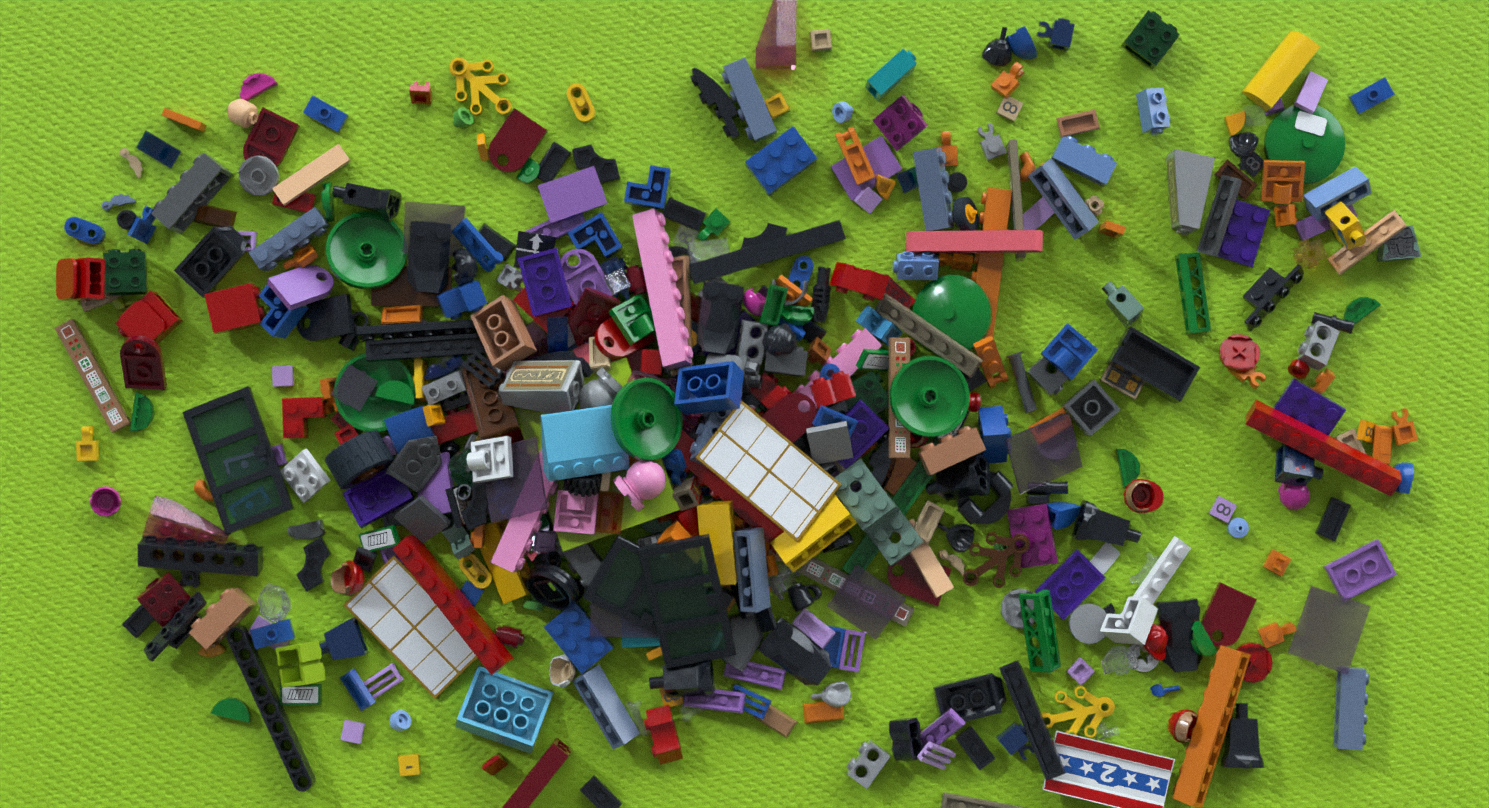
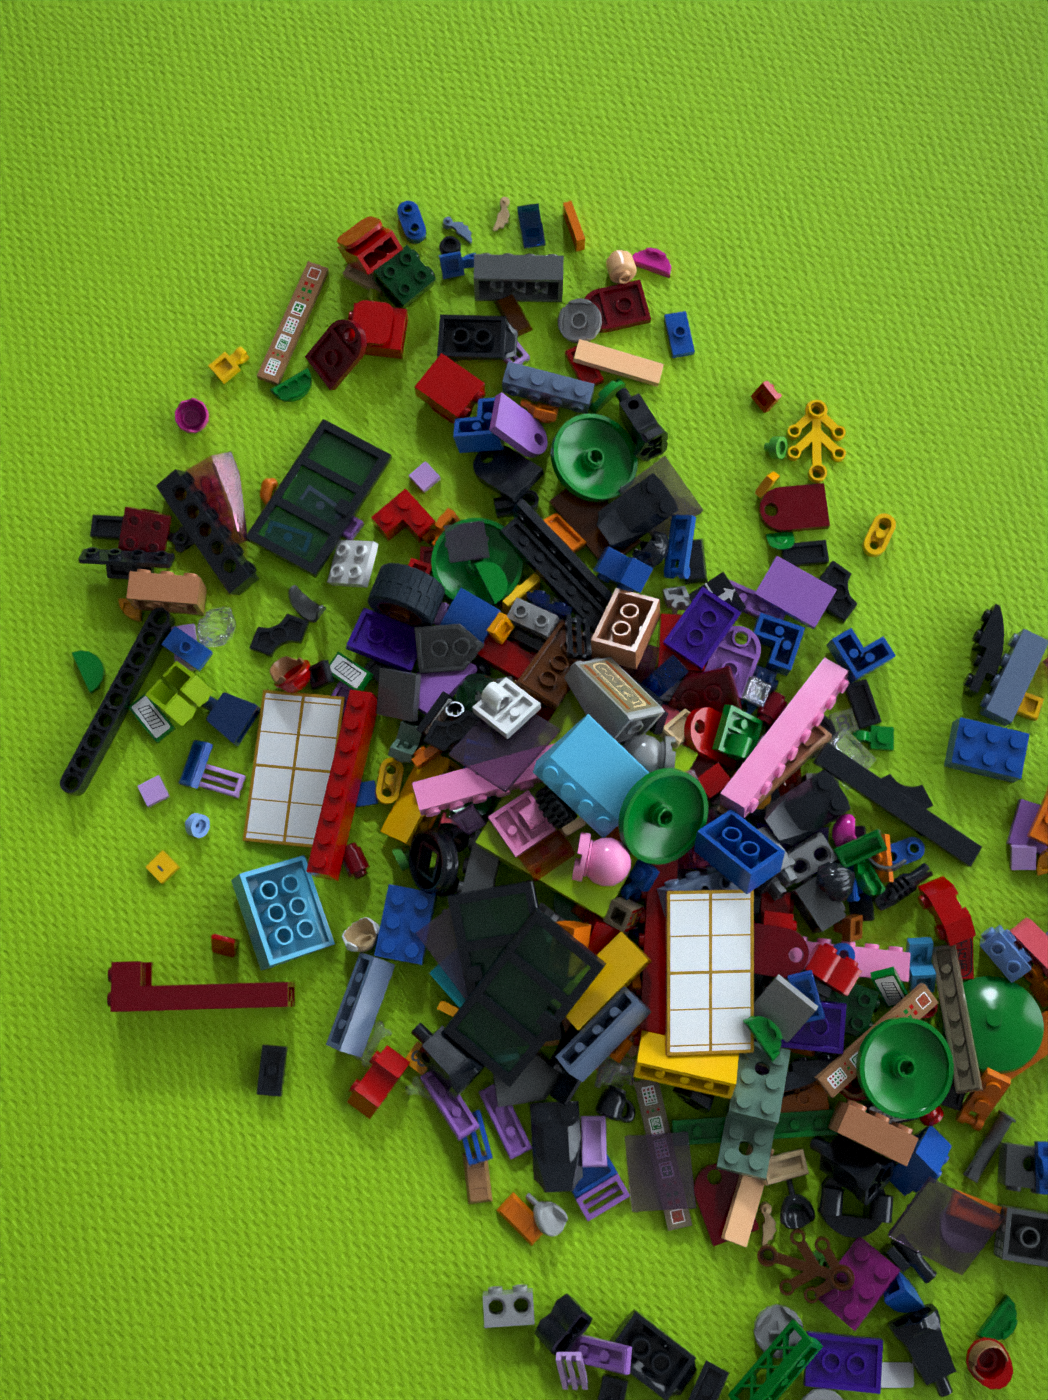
camera: 50 degrees right, 10 degrees down
(837, 467) = (766, 1034): none -> green tile

